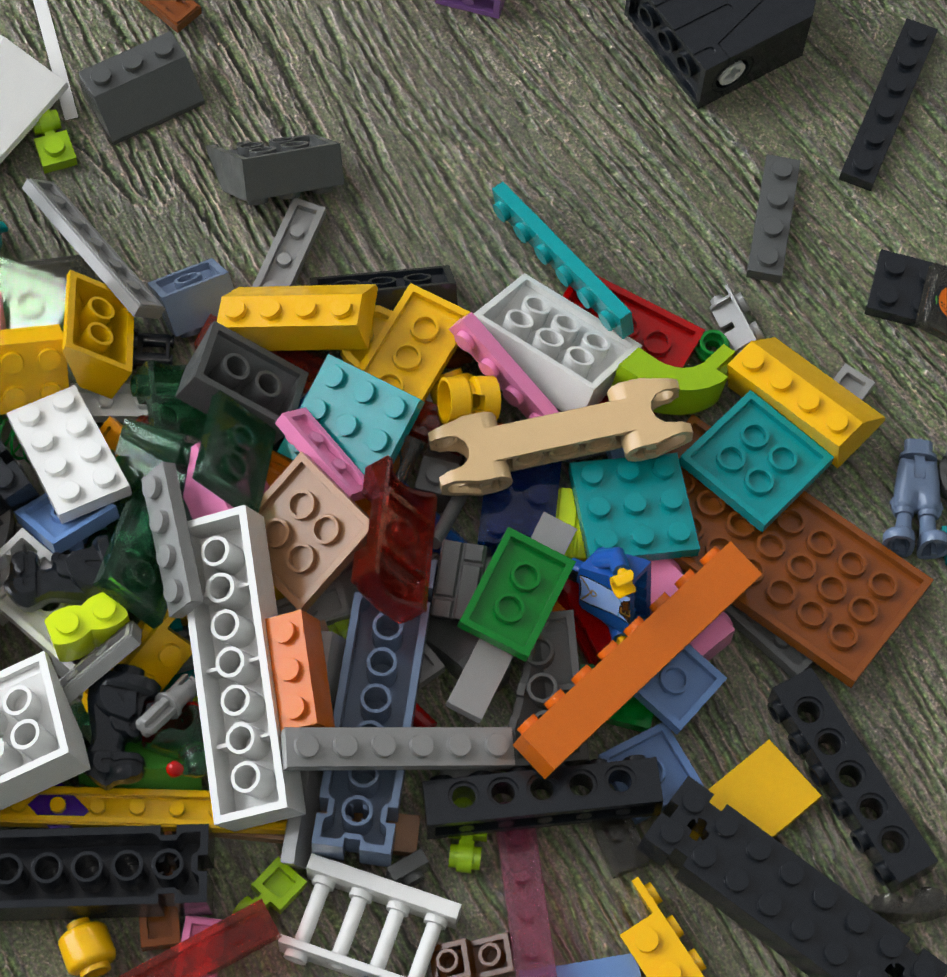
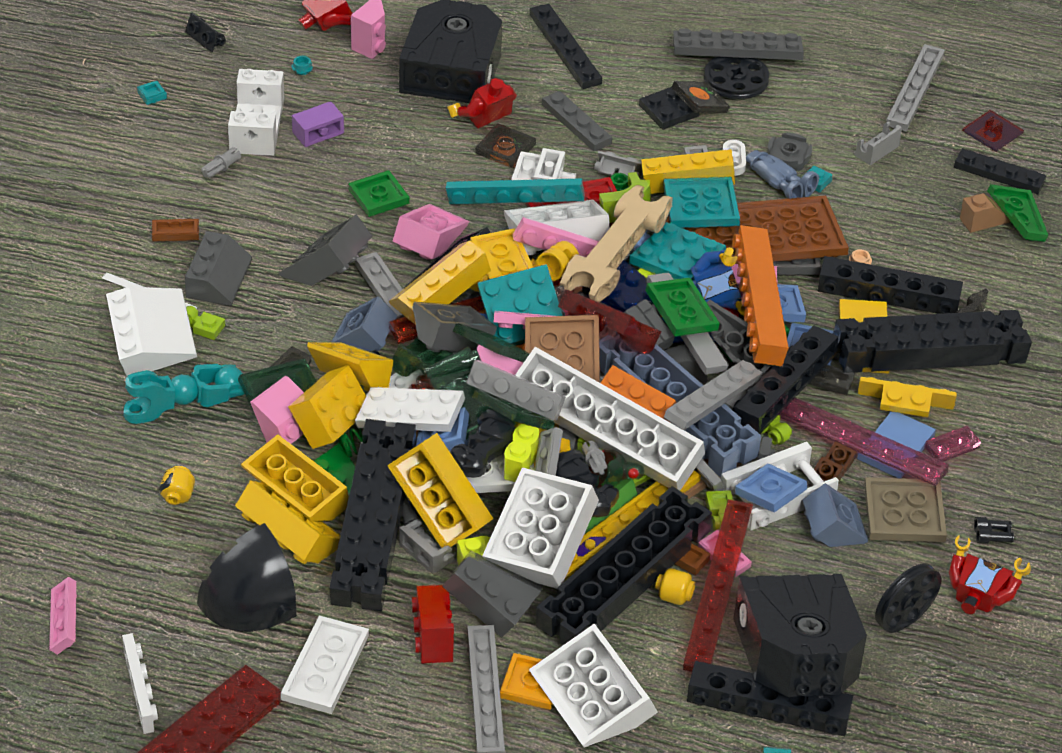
camera: 45 degrees left, 20 degrees down
(93, 249) = (292, 338): light grey tile -> none
(331, 930) = (771, 487): none -> medium blue plate
(420, 227) = (428, 231): none -> bright pink slope
(427, 131) = (378, 193): none -> green plate
(638, 253) = (544, 166): none -> white plate
(650, 184) = (504, 145): none -> clear smoke tile
(688, 112) = (487, 103): none -> red torso
(866, 707) = (860, 256): none -> light nougat plate
(892, 431) = (738, 154): none -> white plate

